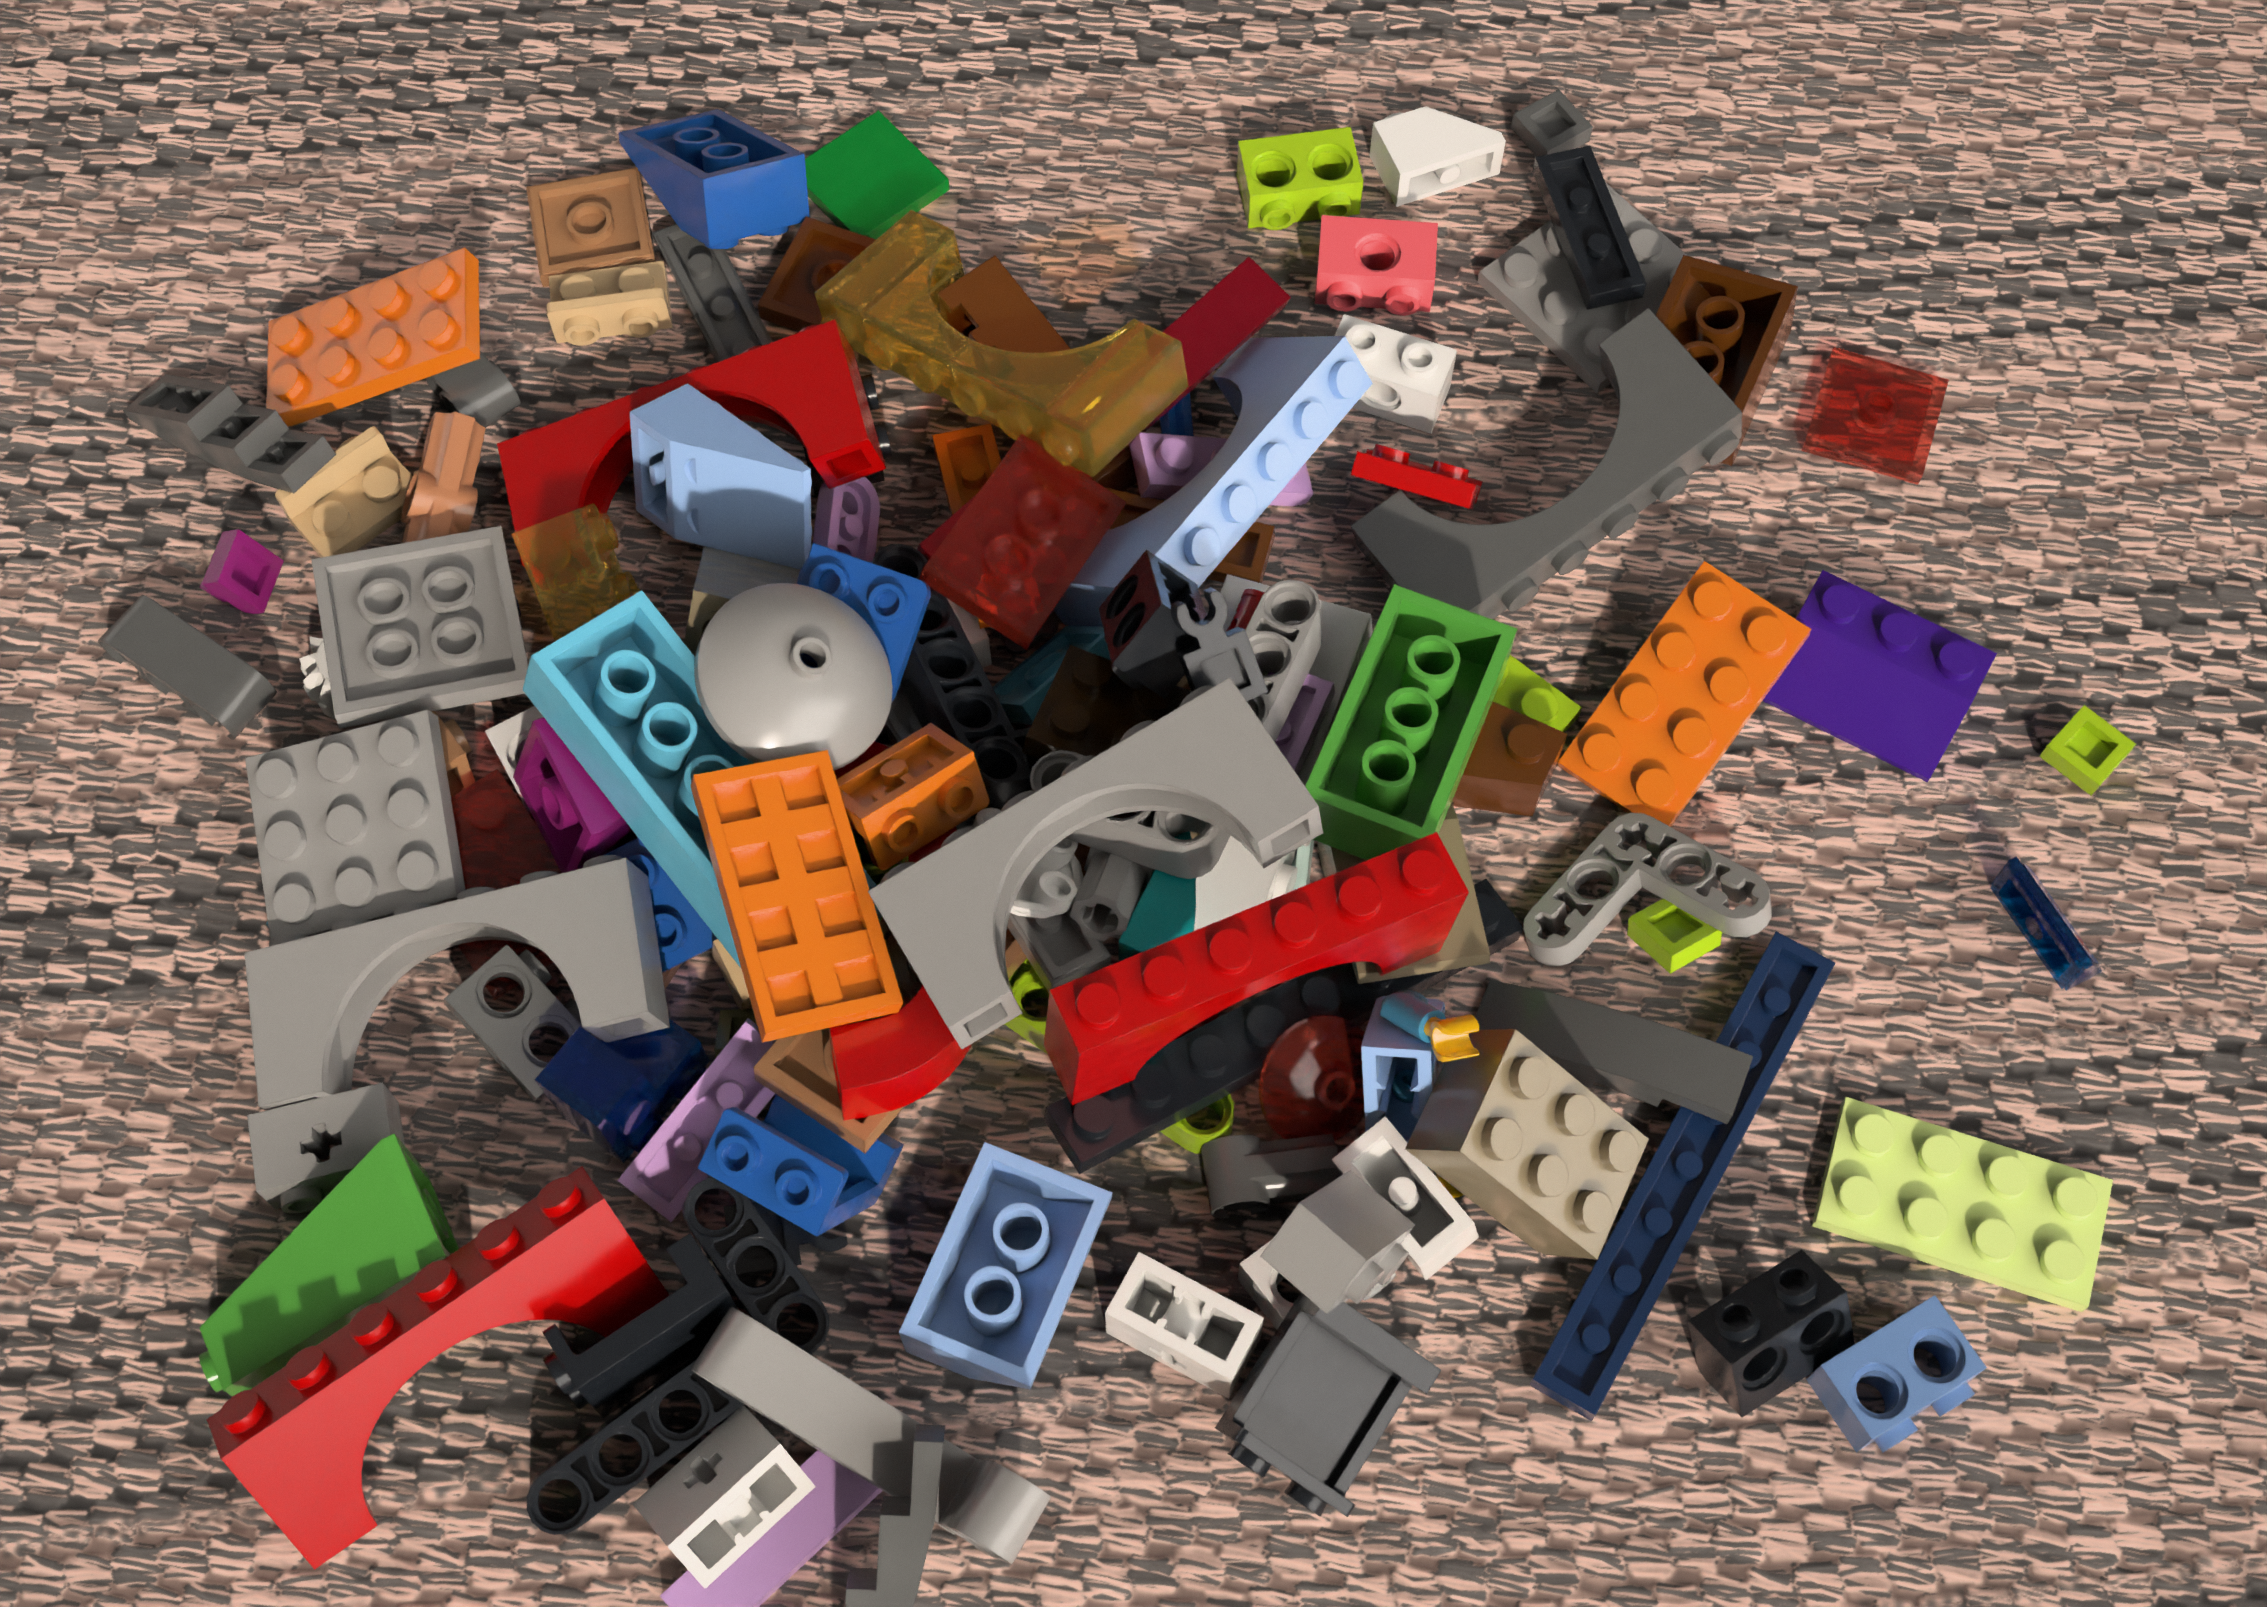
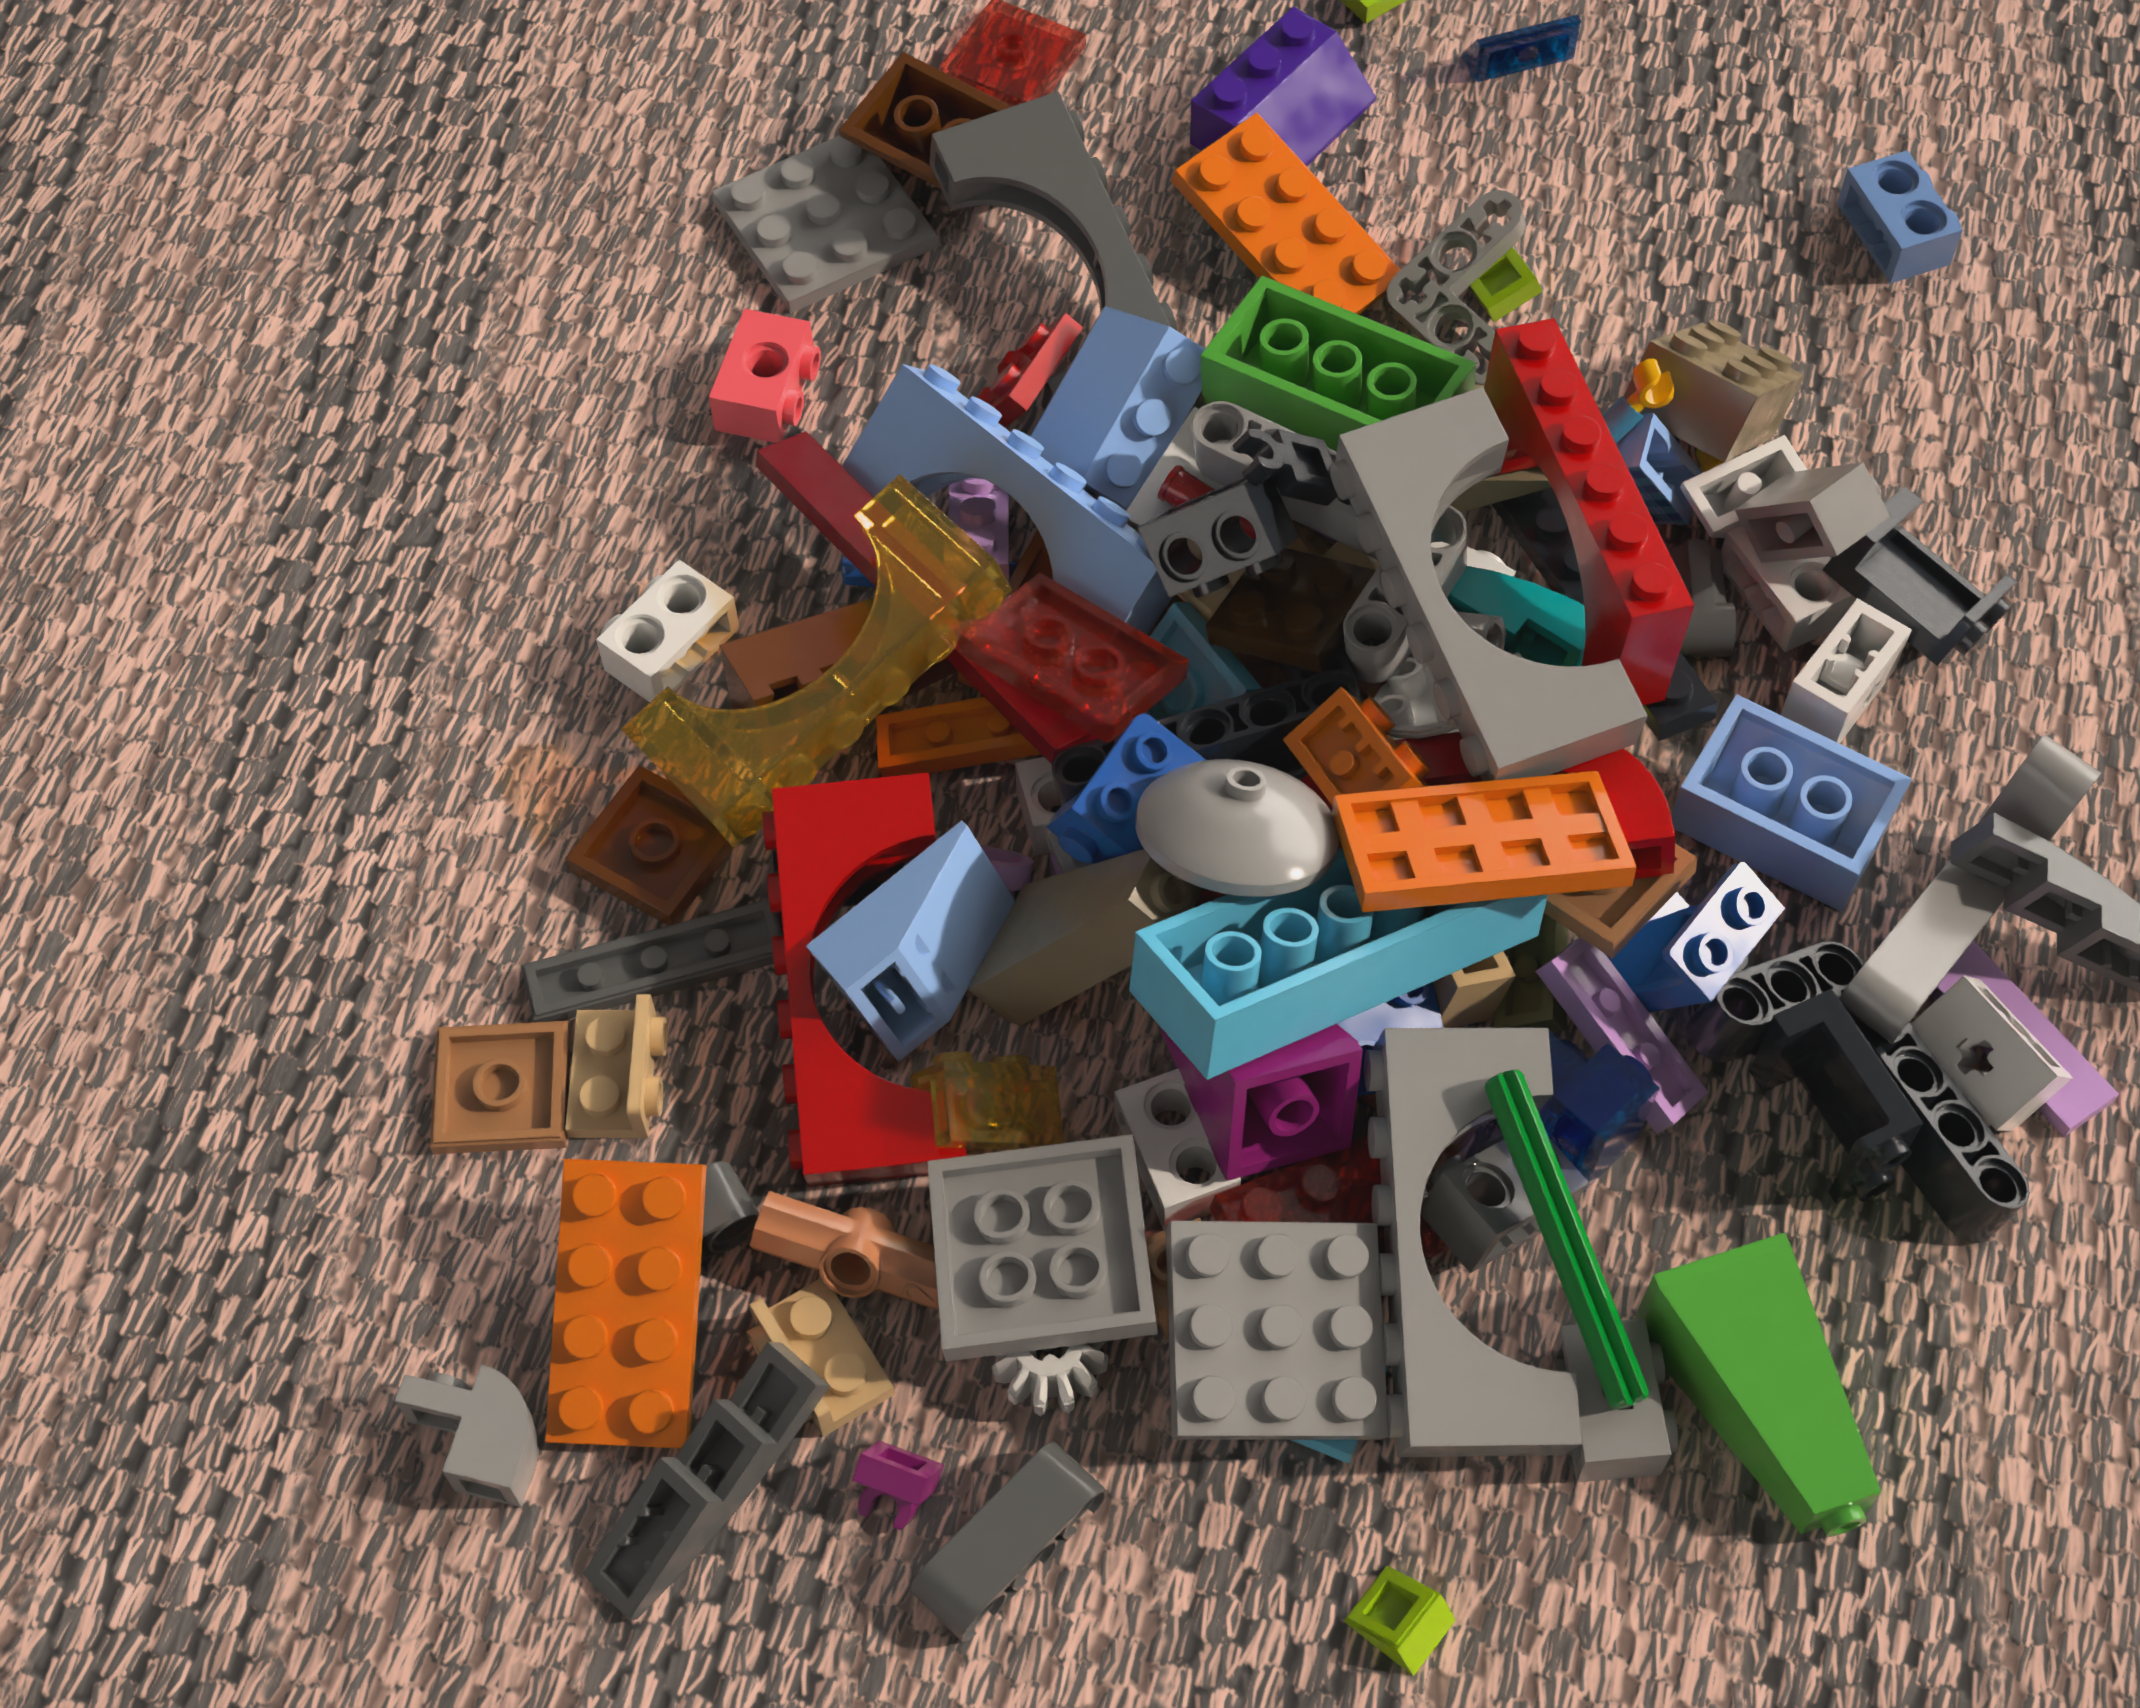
camera: 80 degrees left, 5 degrees down
(128, 991) = (1401, 1618): none -> lime slope
(270, 281) = (492, 1426): none -> light grey brick
(306, 1427) = (1949, 1389): arch -> none
(437, 1055) = (1566, 1240): none -> green axle
(721, 177) = (485, 934): blue slope -> none
(872, 177) = (518, 804): green tile -> none
(1047, 244) = (676, 639): none -> white brick
(1299, 177) = (643, 421): lime brick -> none
(1364, 543) = (1121, 403): none -> light blue slope
(1406, 373) = (905, 343): white brick -> none
(1432, 153) = (641, 315): white slope -> none
(1551, 125) = (636, 218): dark grey plate -> none
(1589, 227) = (780, 197): black plate -> none
(1621, 1049) = (1627, 316): dark grey slope -> none
(1677, 1187) = (1687, 297): dark blue plate -> none
(1772, 1332) = (1868, 279): black brick -> none
(1963, 1204) = (1752, 156): yellowish green plate -> none

